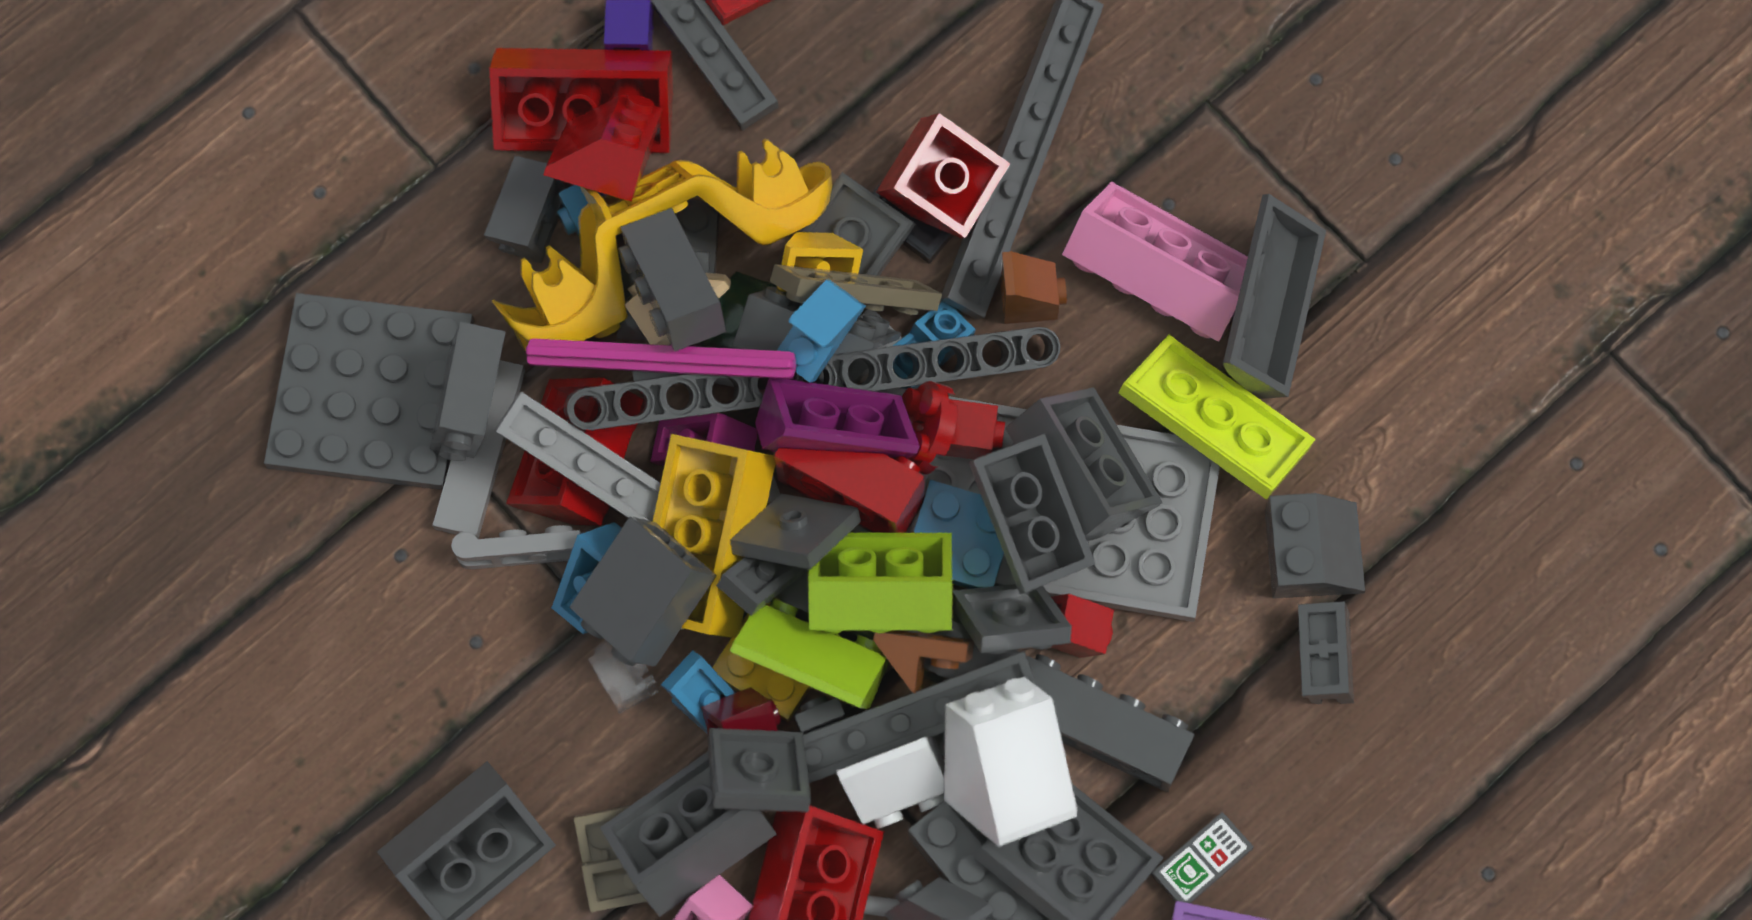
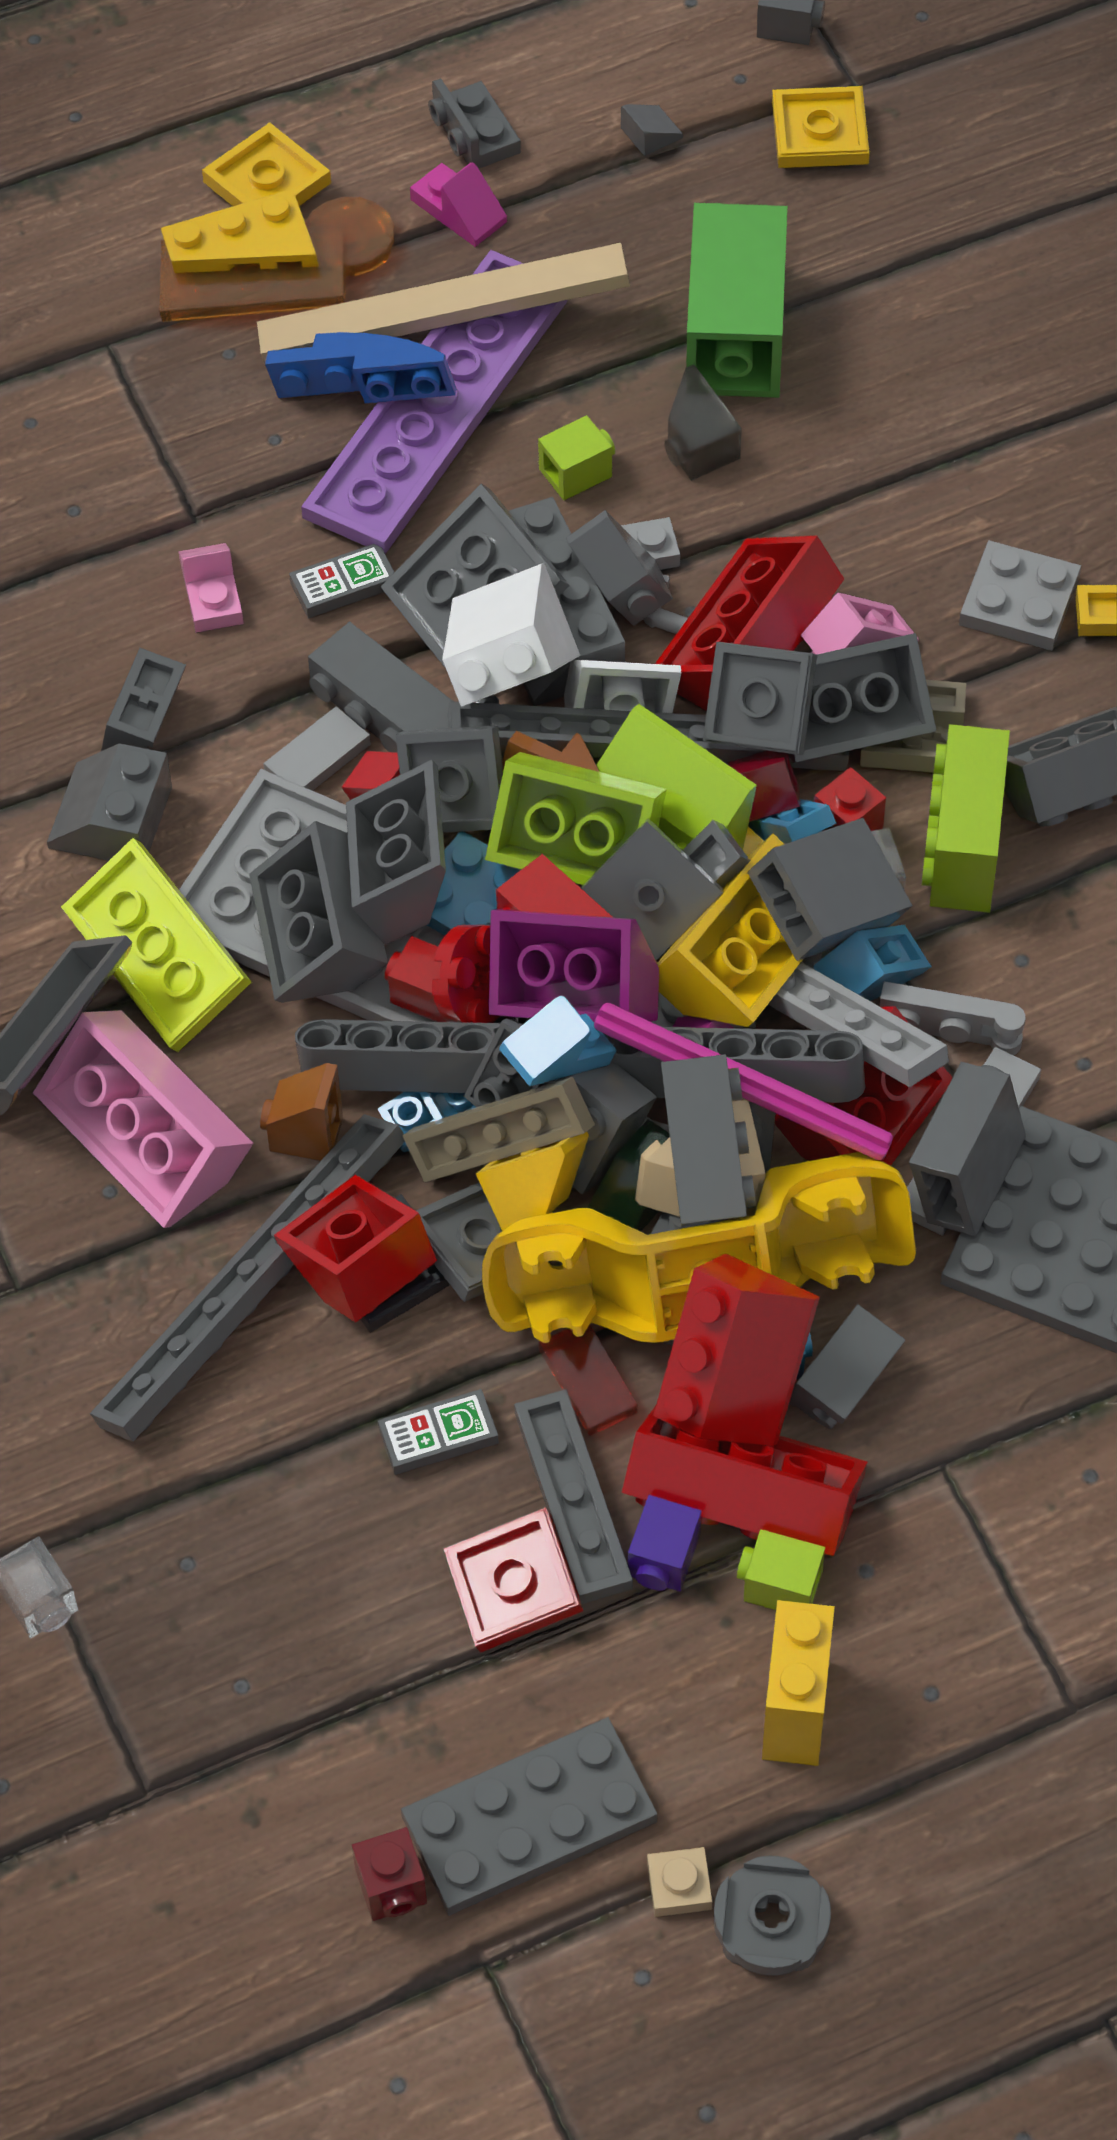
camera: 165 degrees left, 15 degrees down
(533, 25) = (780, 1570): none -> lime brick
(548, 735) = (965, 818): none -> lime brick
(658, 725) = (852, 799): none -> red brick
(719, 141) = (590, 1379): none -> clear red tile
(832, 74) = (438, 1431): none -> tile
(1156, 661) = (319, 750): none -> light grey tile
(1324, 819) = (211, 587): none -> bright pink slope

